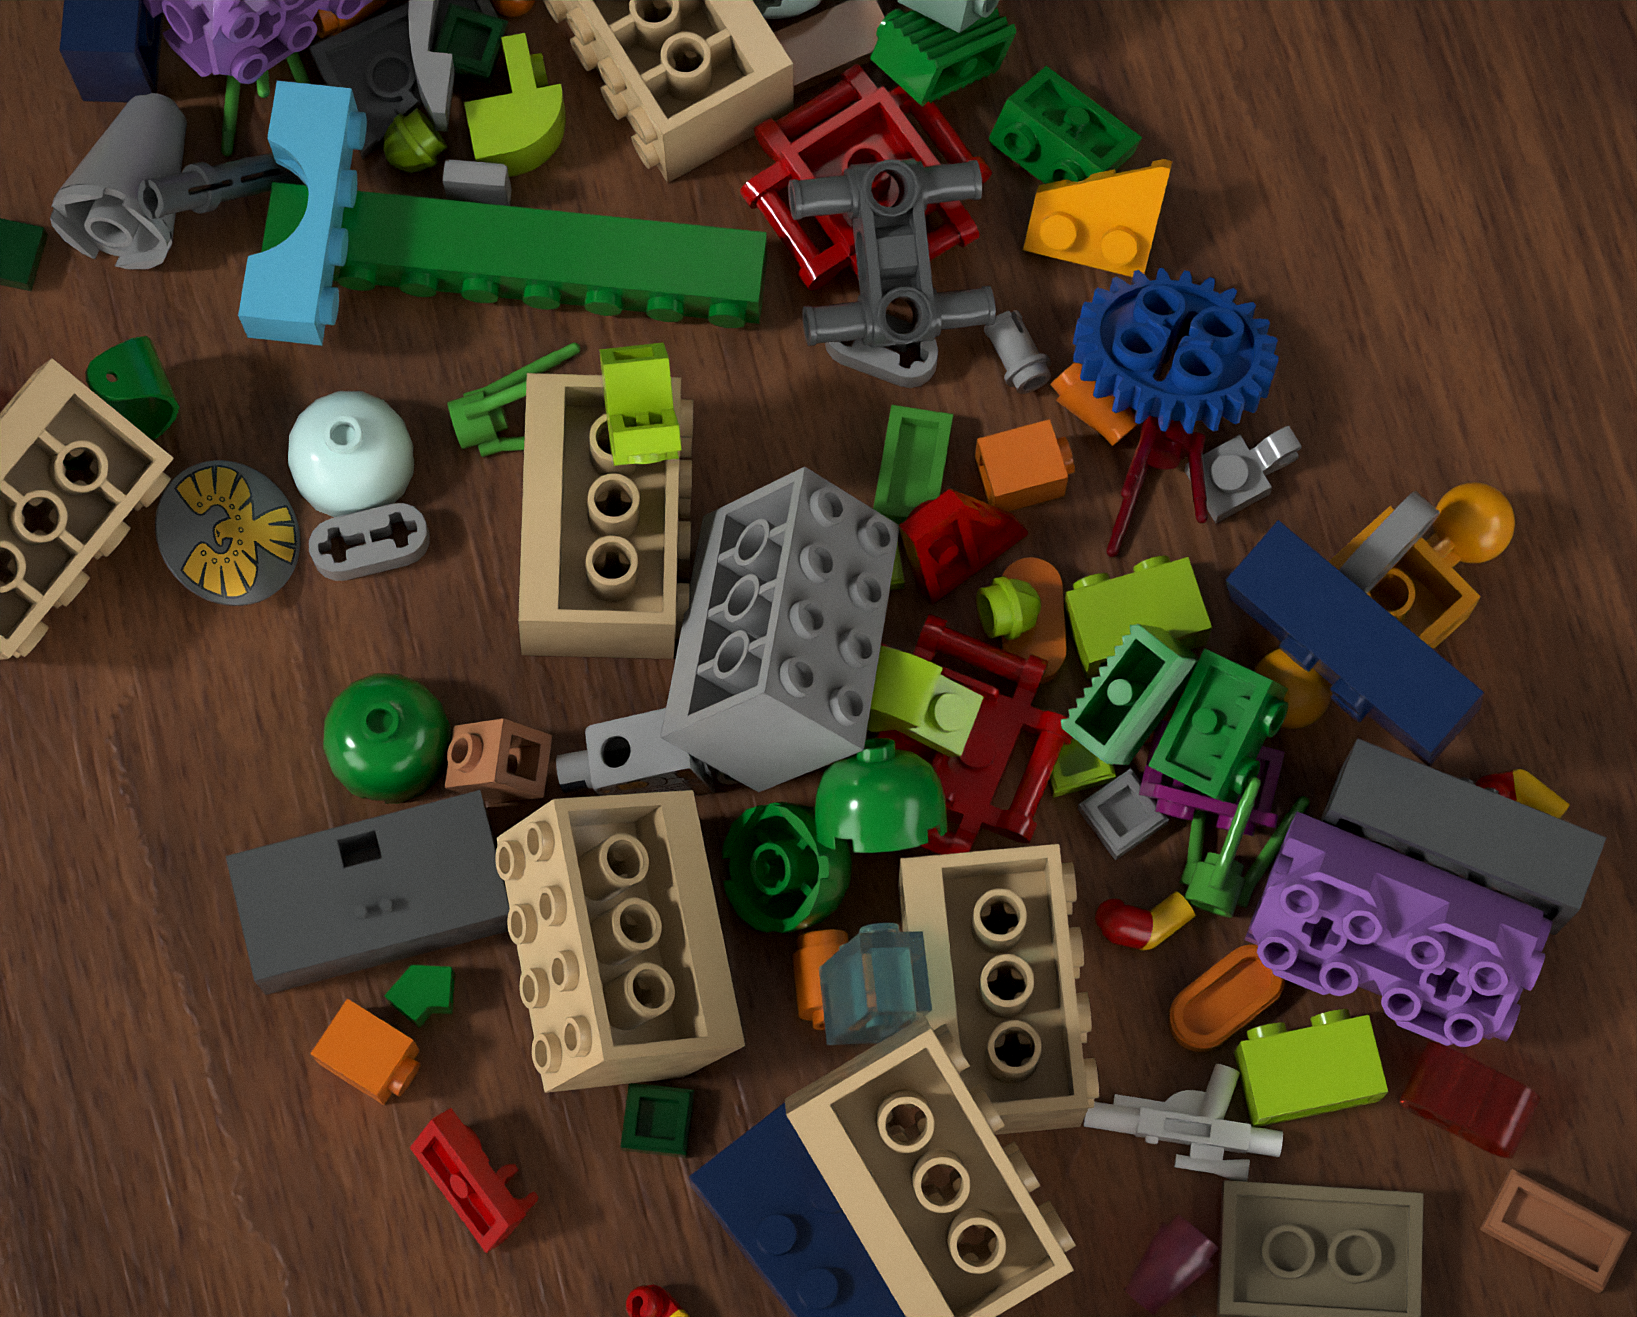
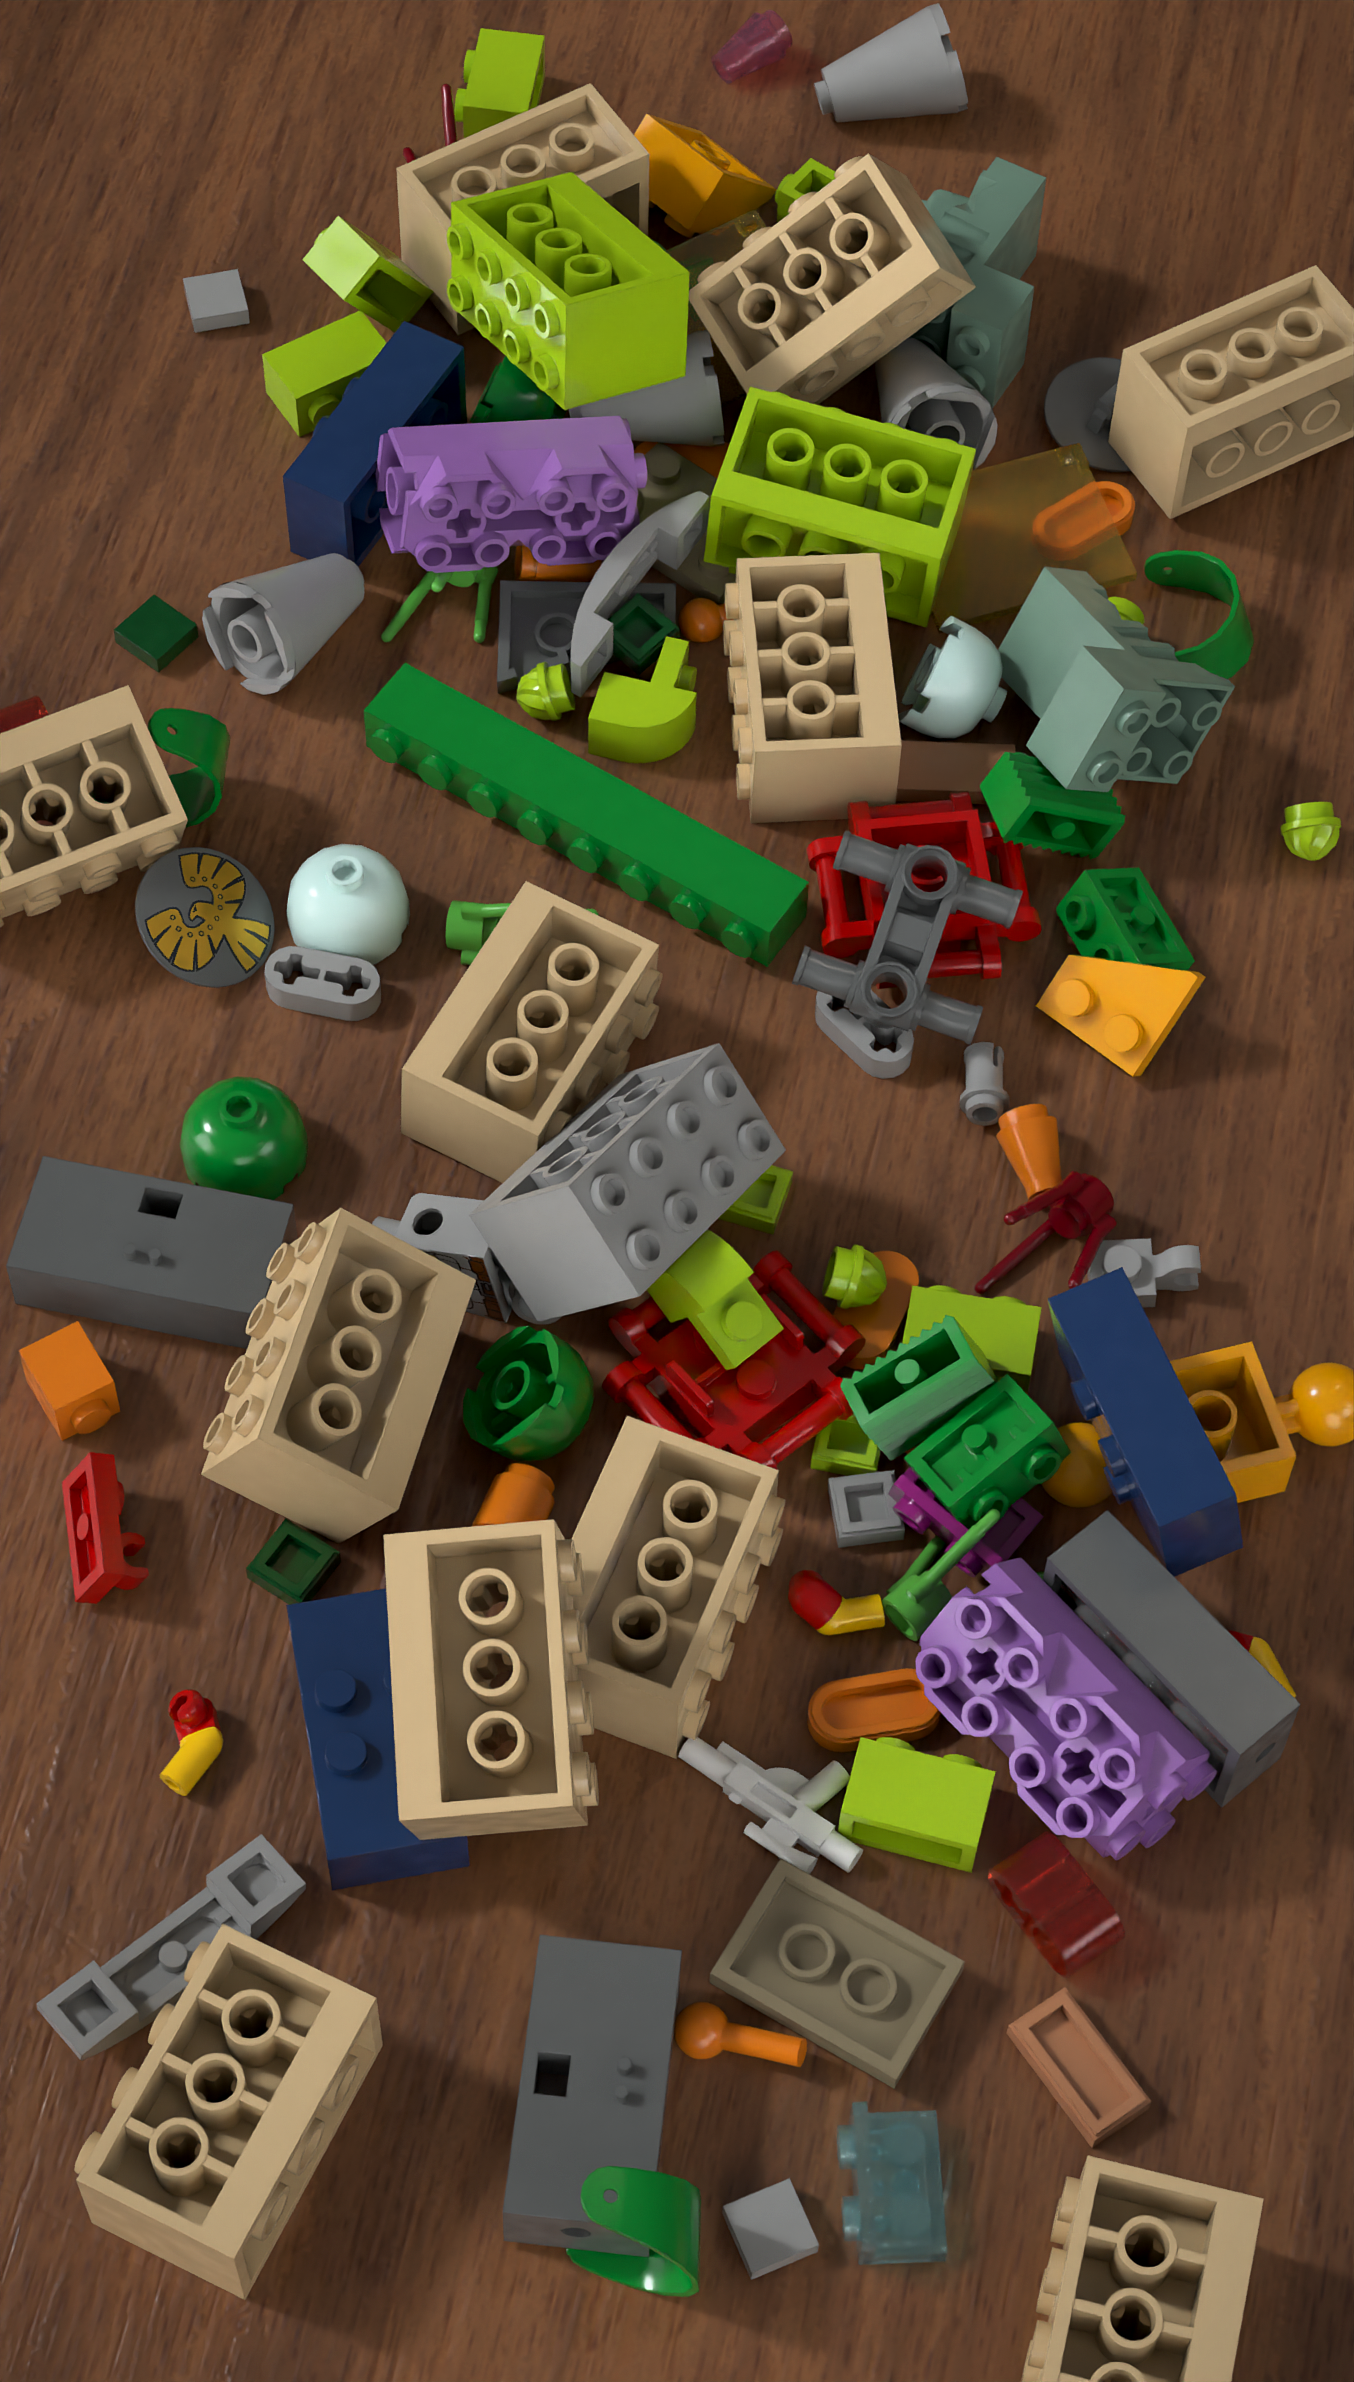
camera: 25 degrees right, 15 degrees down
(171, 194) = (358, 640): dark grey pin -> none
(290, 286) = (370, 737): medium azure arch -> none
(423, 992) = (151, 1360): green piece -> none
(477, 182) = (582, 739): light grey tile -> none
(499, 760) = (324, 1183): nougat brick -> none
(639, 404) = (604, 940): lime brick -> none
(875, 985) = (554, 1486): clear light blue brick -> none
(880, 800) = (636, 1352): green cylinder -> none
(912, 460) = (834, 1134): bright green tile -> none
(954, 540) = (836, 1200): red wing -> none
(1024, 466) = (935, 1175): orange brick -> none
(1170, 1264) = (690, 1910): clear pink cone -> none
(1214, 372) = (1125, 1136): blue gear -> none
(1390, 542) = (1231, 1362): light grey beam -> none

